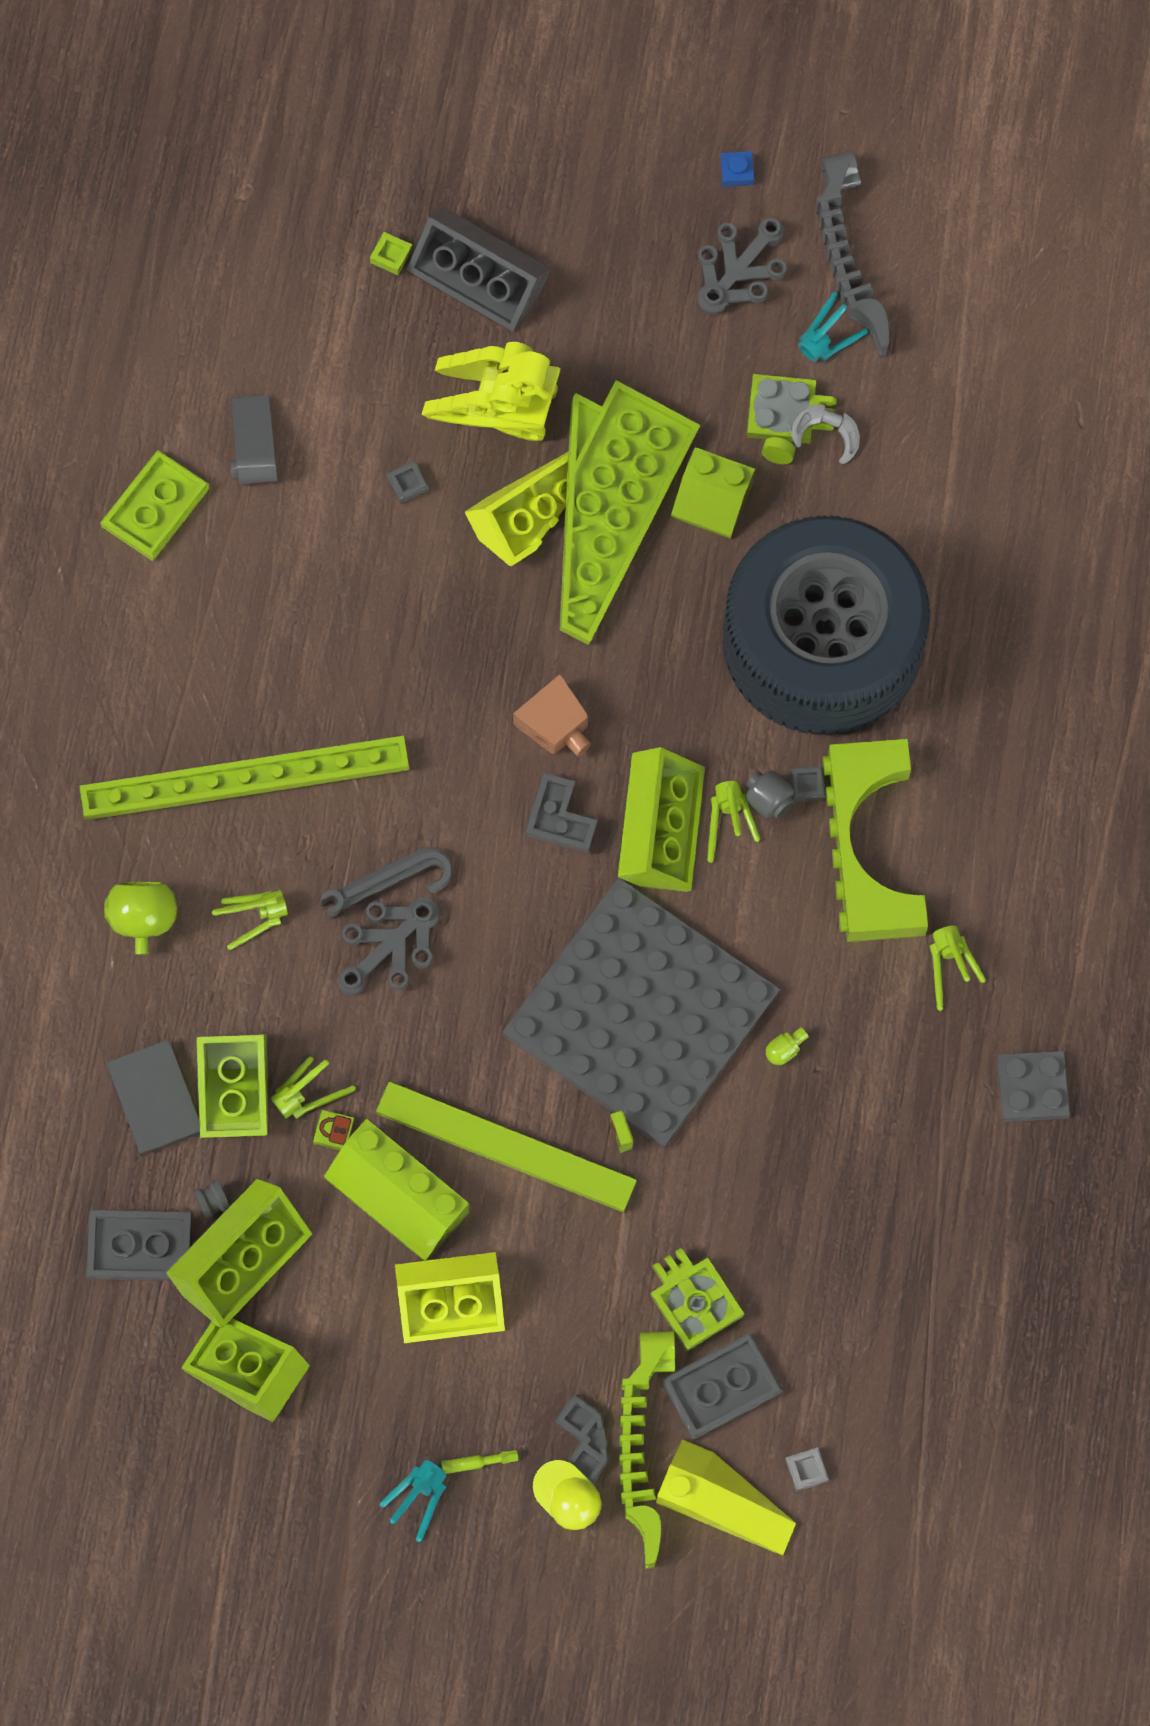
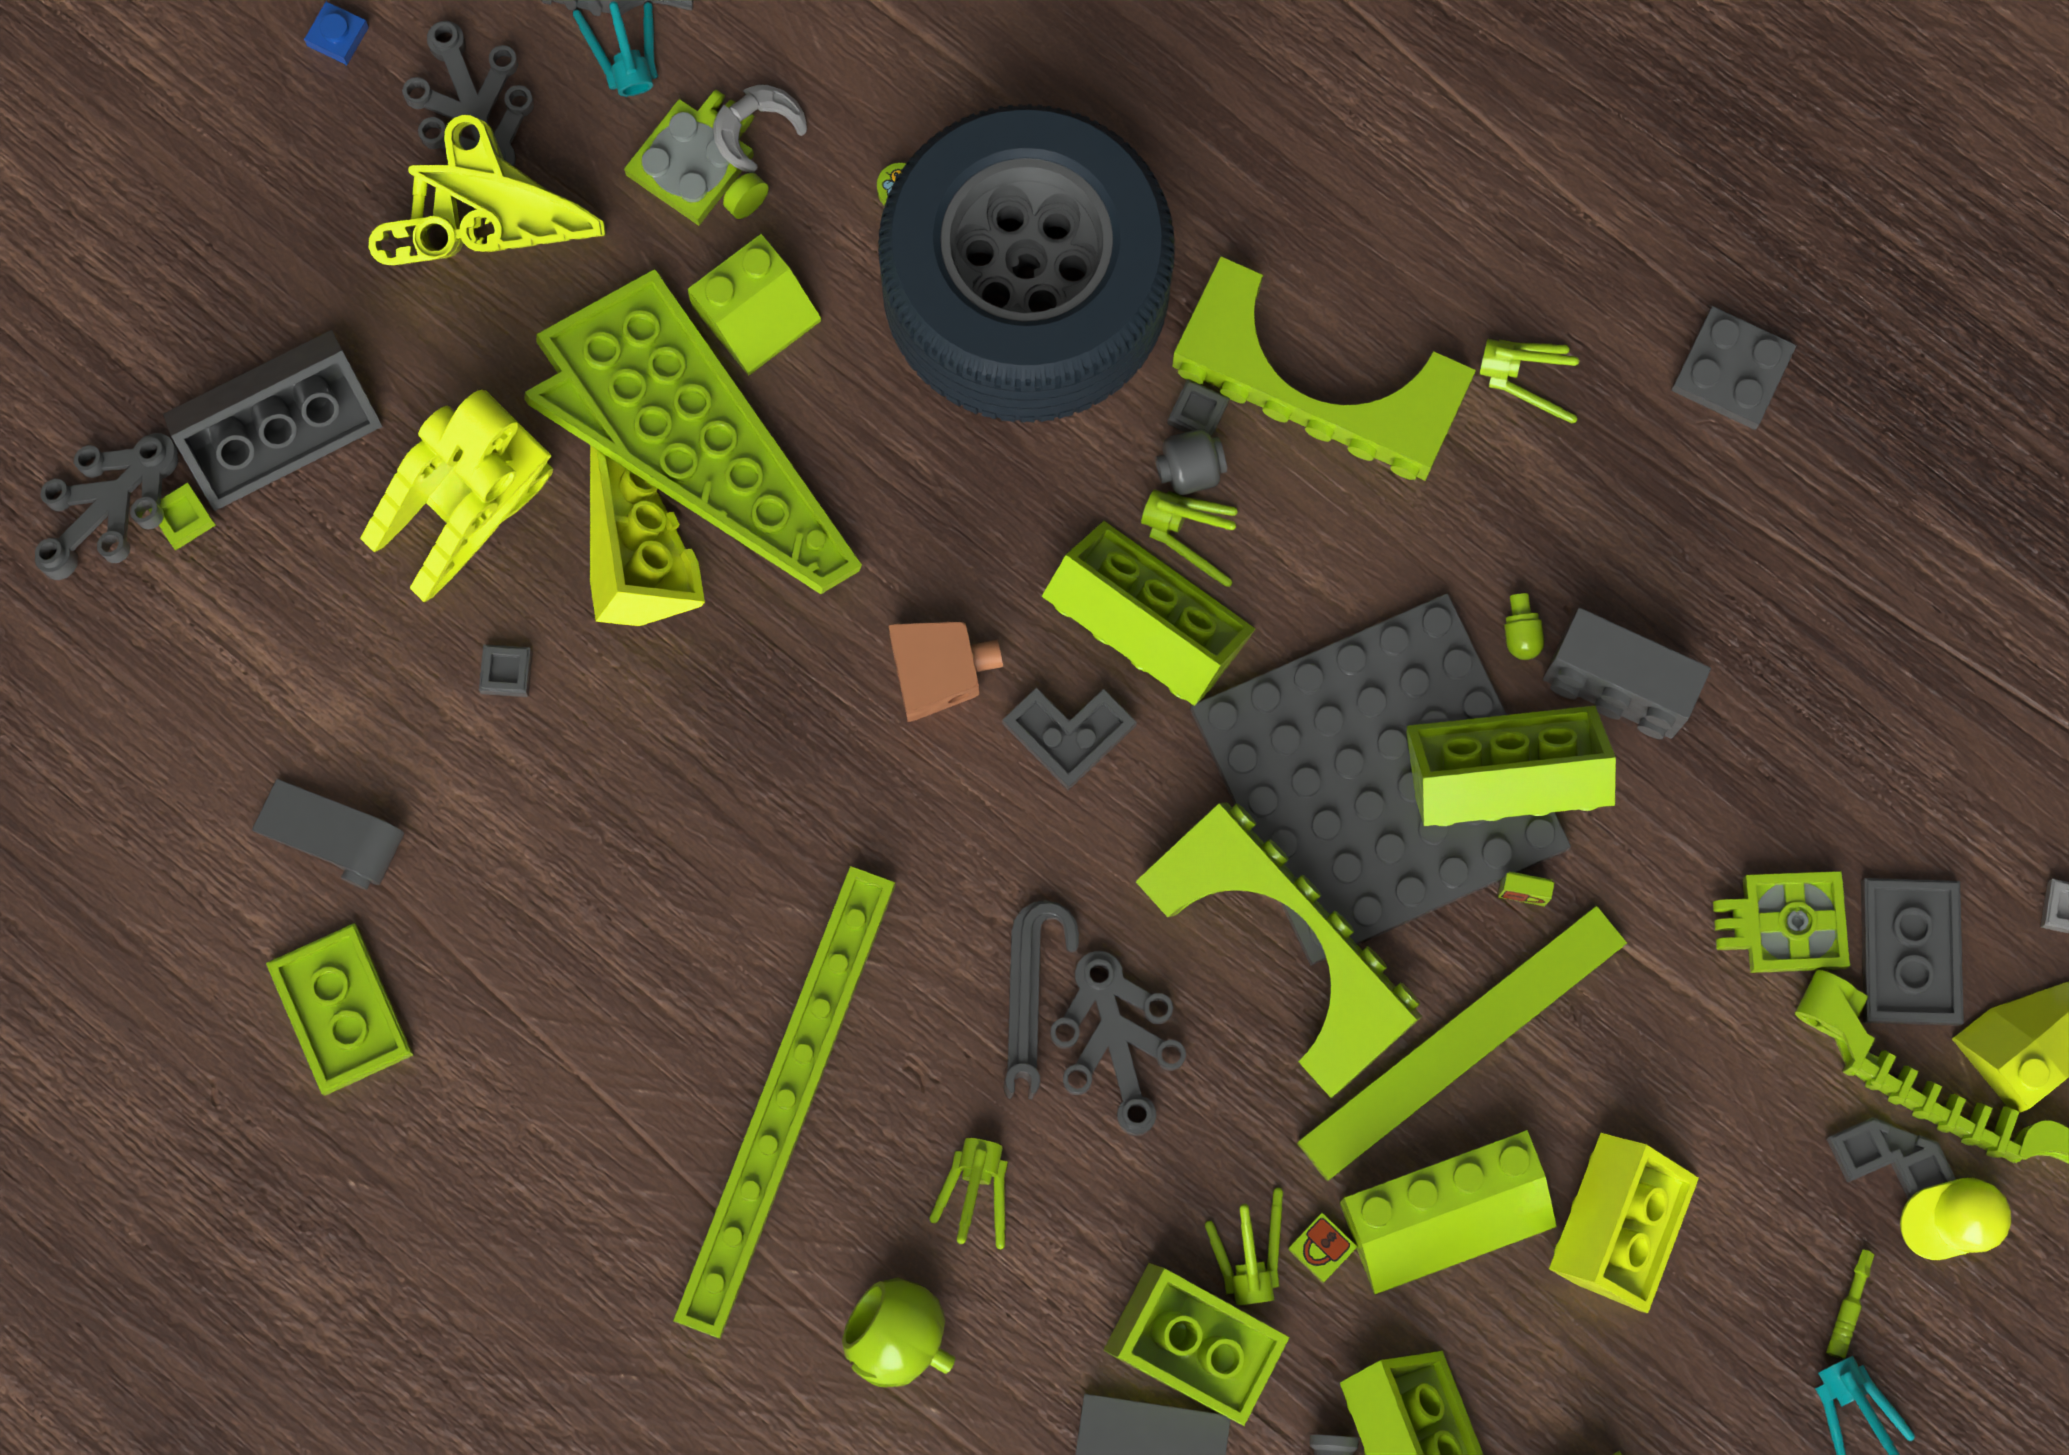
camera: 60 degrees left, 5 degrees up
(408, 217) = (109, 500): none -> dark grey plant
(490, 1070) = (1364, 1005): none -> lime arch
(685, 312) = (480, 177): none -> neon yellow piece
(688, 1077) = (1511, 766): none -> lime slope
(786, 1116) = (1625, 675): none -> dark grey brick

